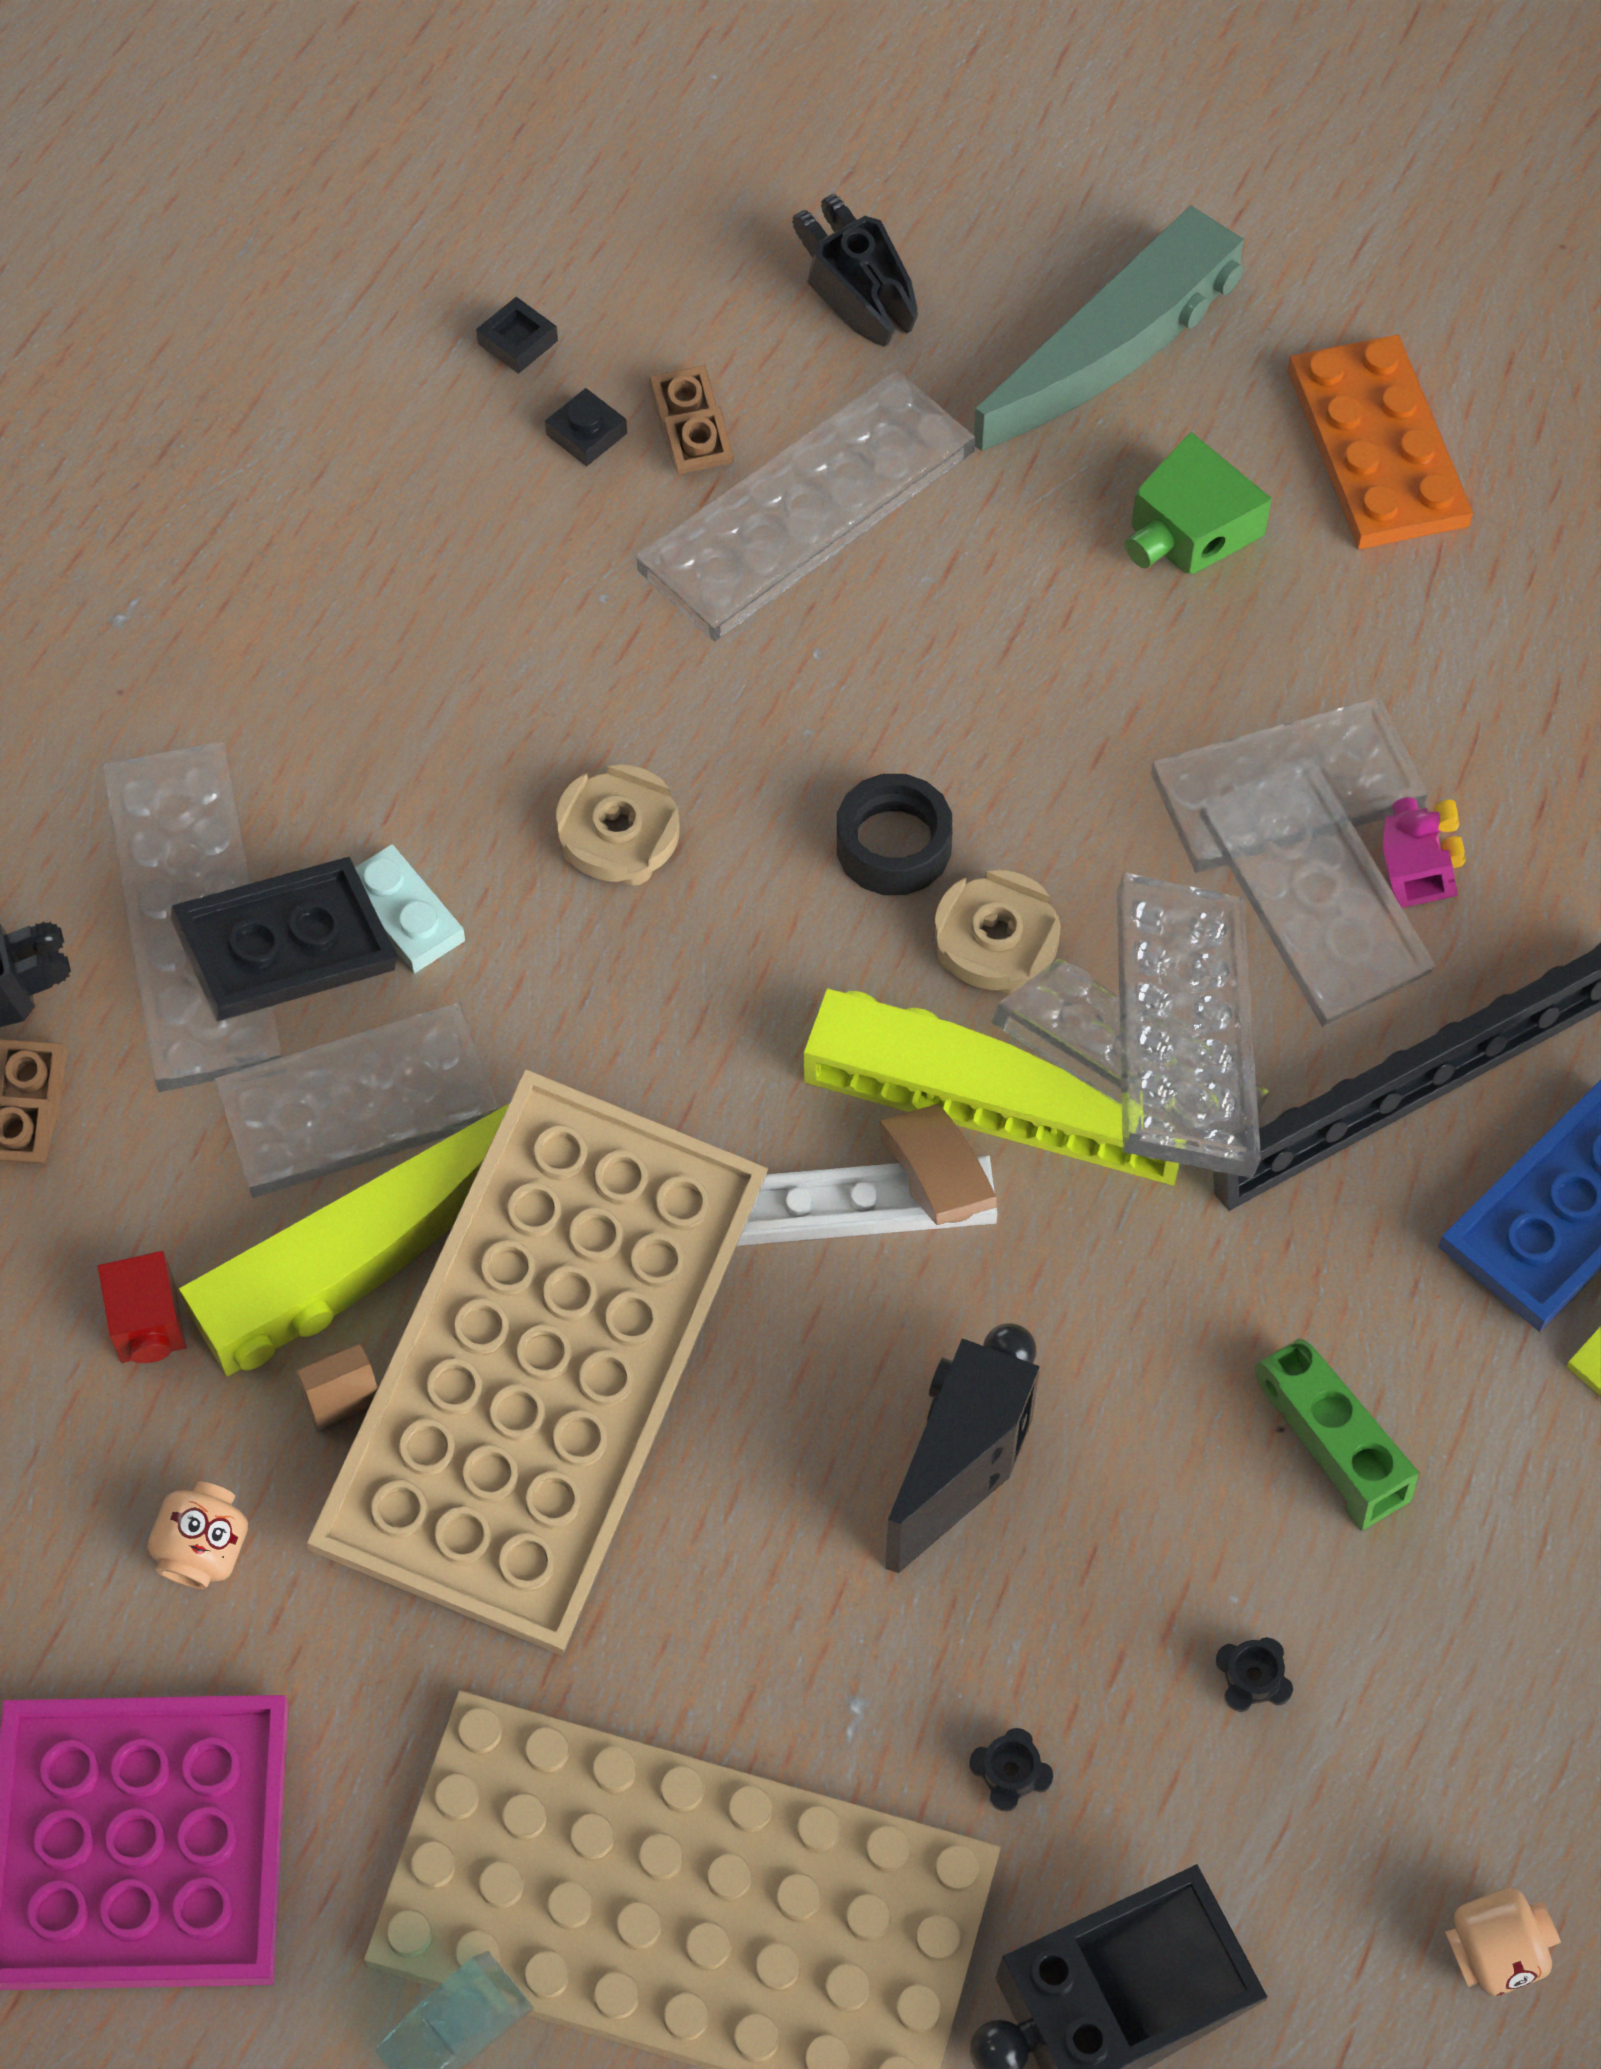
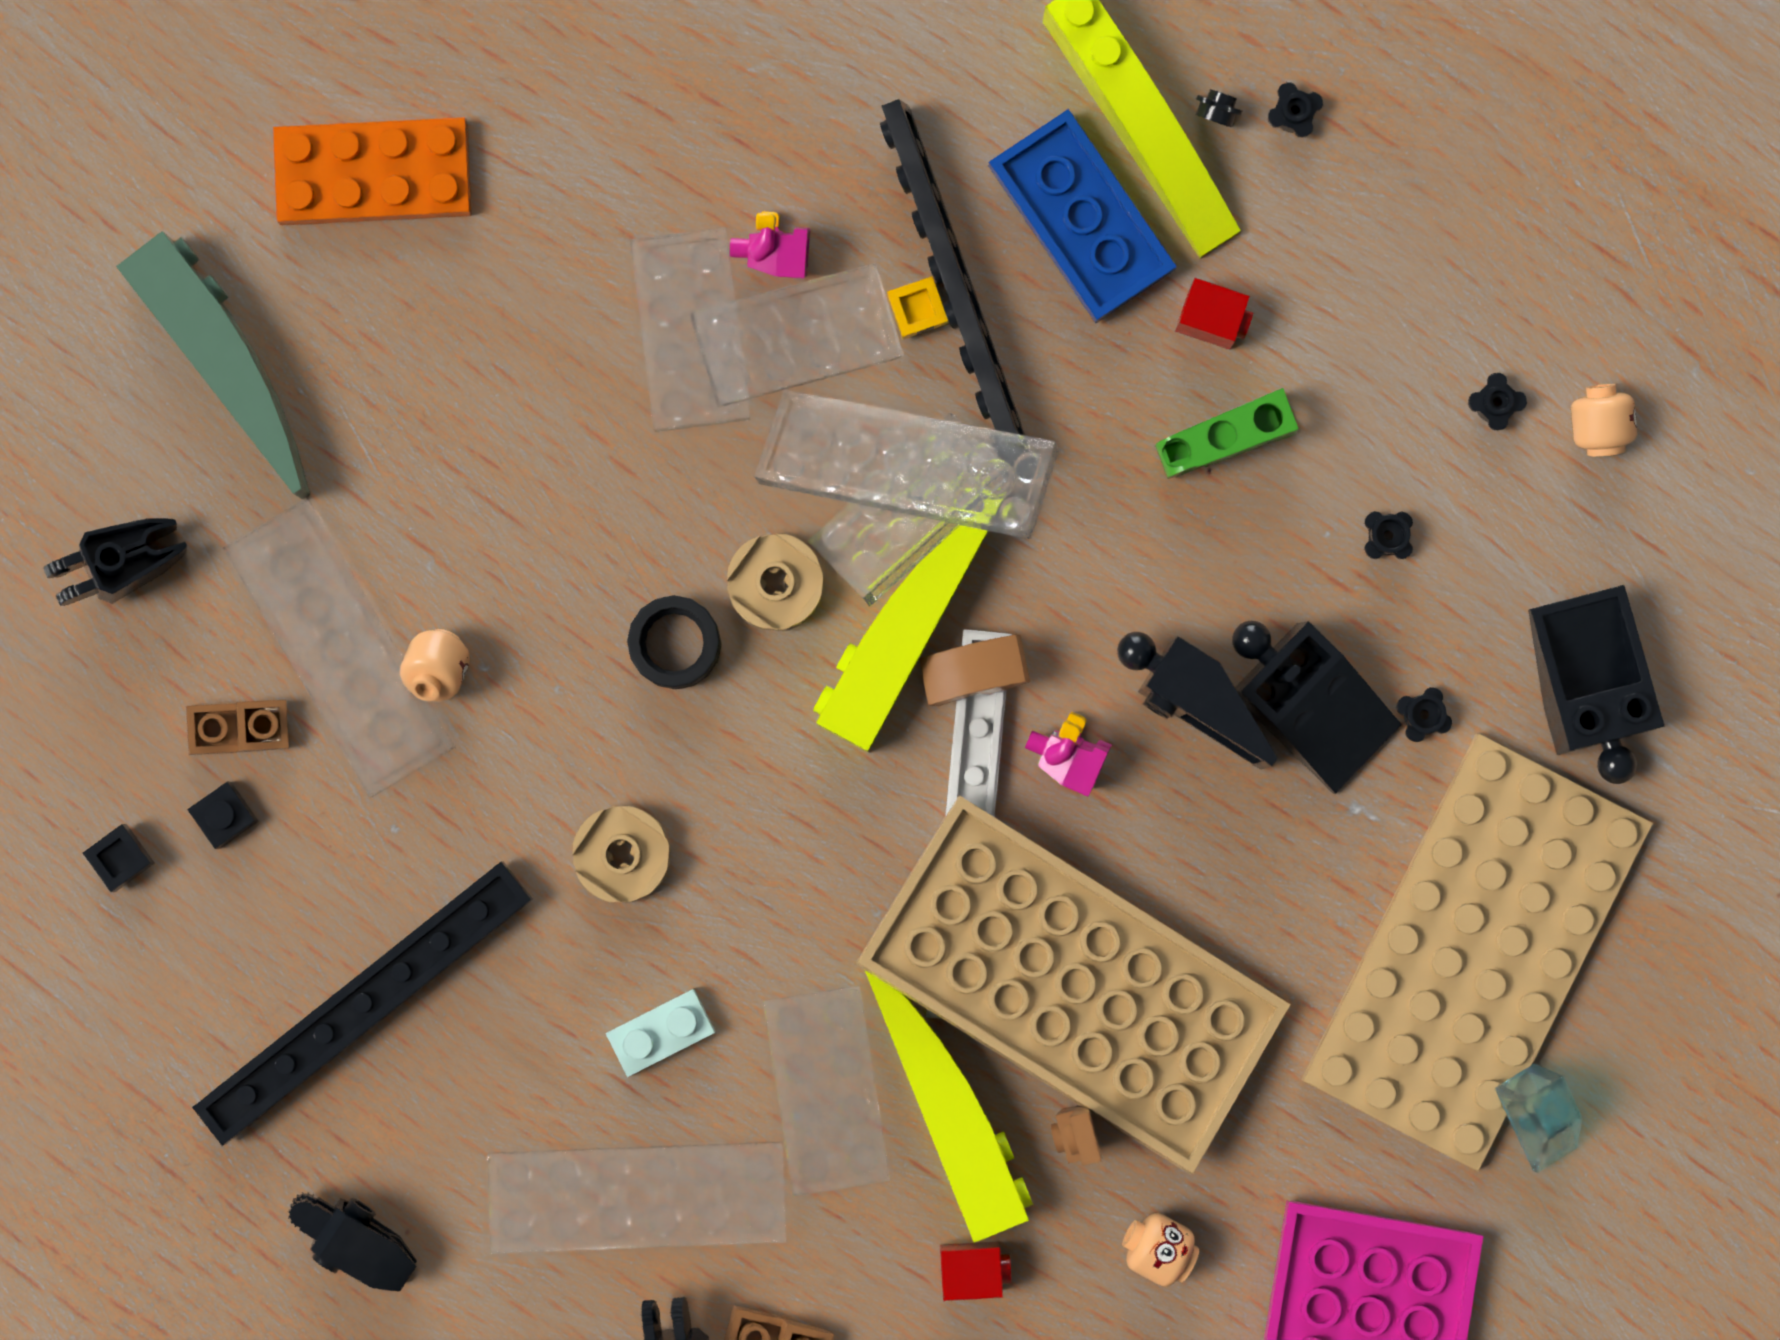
camera: 80 degrees left, 25 degrees up
(100, 624) = (353, 1241): none -> black hinge
(283, 938) = (688, 1129): black plate -> none
(393, 595) = (362, 1003): none -> black plate
(806, 585) = (435, 665): none -> light nougat head
(846, 1309) = (1069, 757): none -> dark pink piece
(989, 1617) = (1316, 708): none -> black slope
(1195, 510) = (419, 339): bright green torso -> none
(1390, 1024) = (917, 308): none -> yellow plate
(1491, 1809) = (1497, 415): none -> black plate
(1494, 1381) = (1214, 314): none -> red brick

